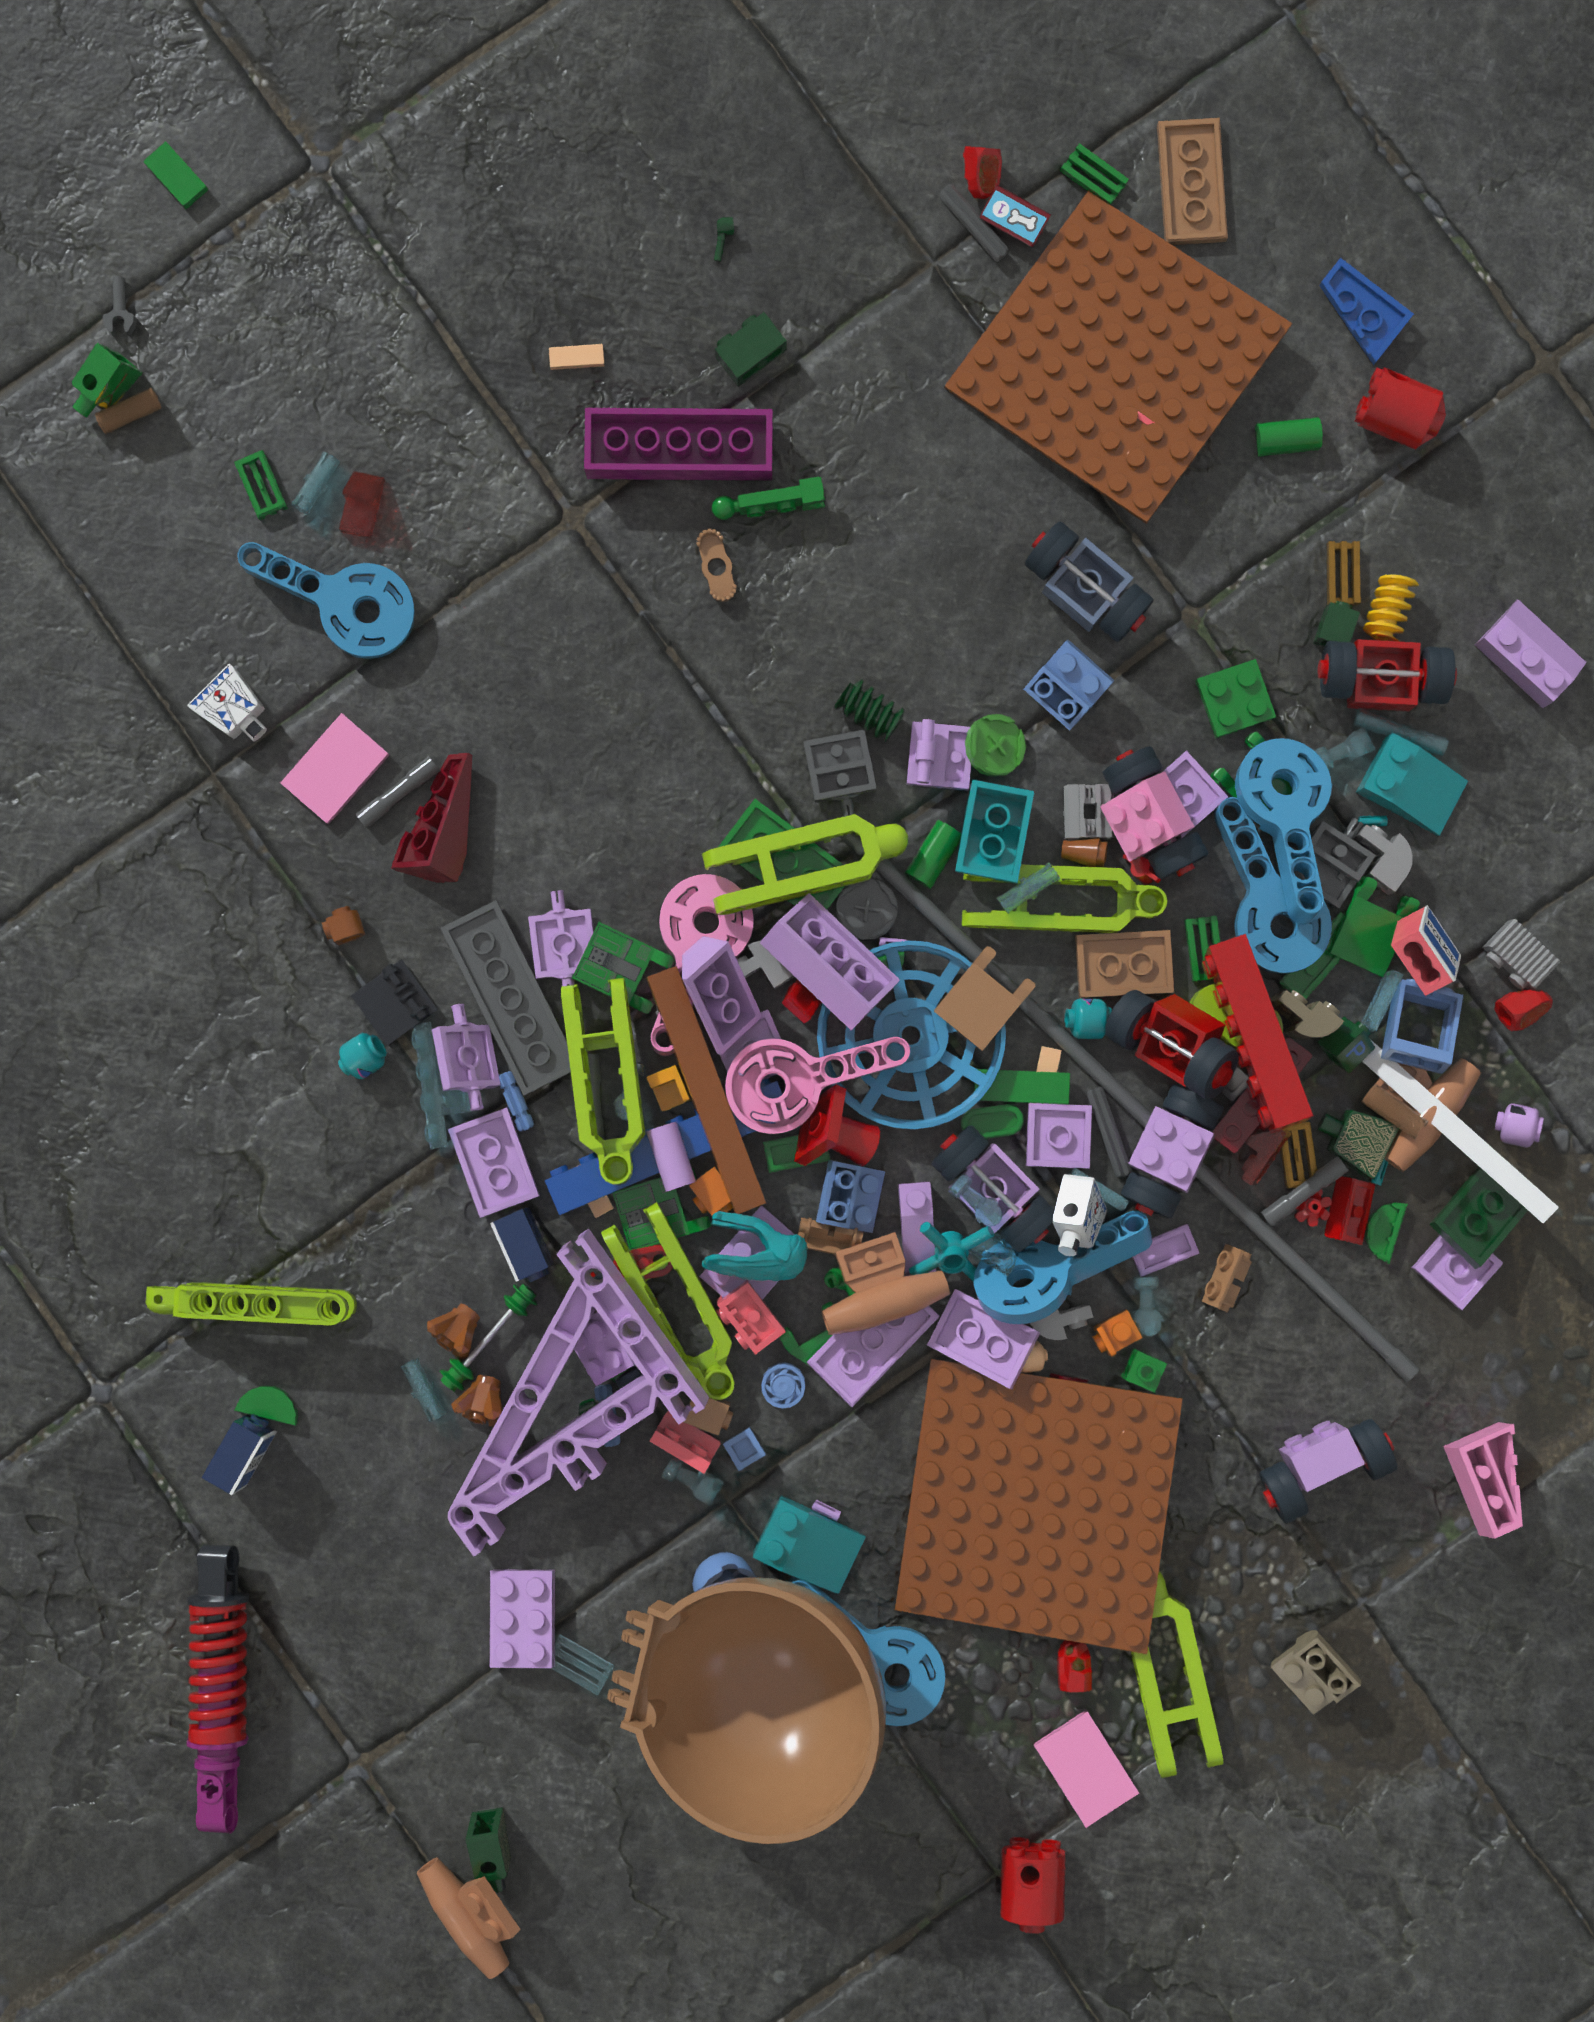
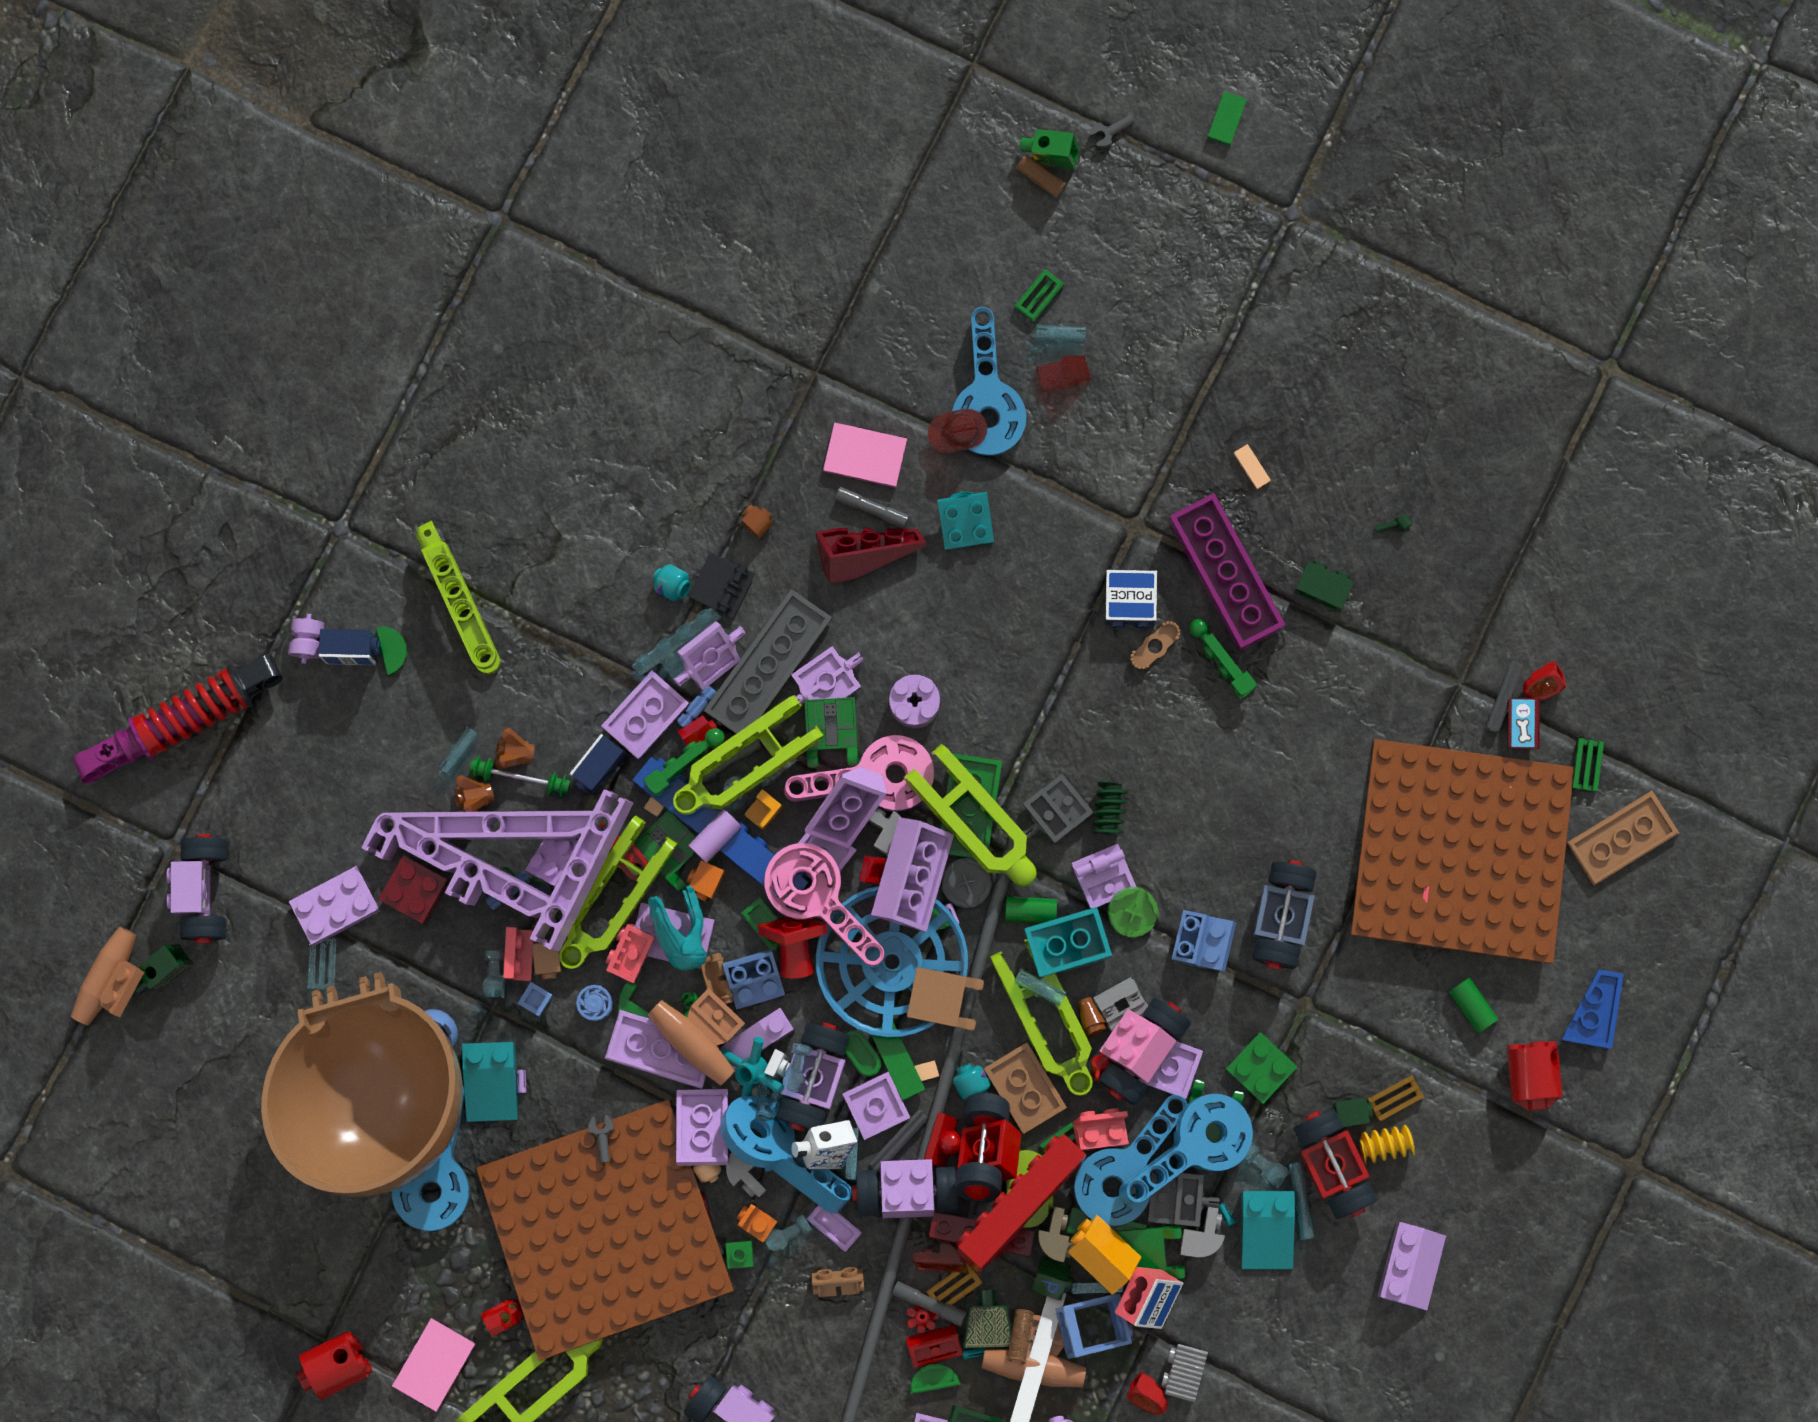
camera: 60 degrees right, 5 degrees down
(211, 1500) = (306, 633): none -> lavender wheel
(230, 705) = (870, 359): torso -> none
(362, 652) = (957, 430): none -> clear red piece
(419, 1770) = (191, 888): none -> brick
(467, 696) = (965, 520): none -> teal plate
(550, 1114) = (696, 730): none -> red brick
(552, 1521) = (414, 890): none -> dark red brick
(577, 1187) = (659, 781): none -> green plate
(630, 842) = (903, 692): none -> lavender brick
(651, 563) = (1130, 598): none -> piece
(706, 1090) = (774, 836): dark orange tile -> none
(936, 1454) = (602, 1137): none -> dark grey bar
(961, 1219) = (777, 1065): none -> white plate
(1136, 1082) = (943, 1140): none -> red tile
(1215, 907) = (1101, 1130): none -> coral bracket
(1356, 973) = (1104, 1253): none -> light orange brick

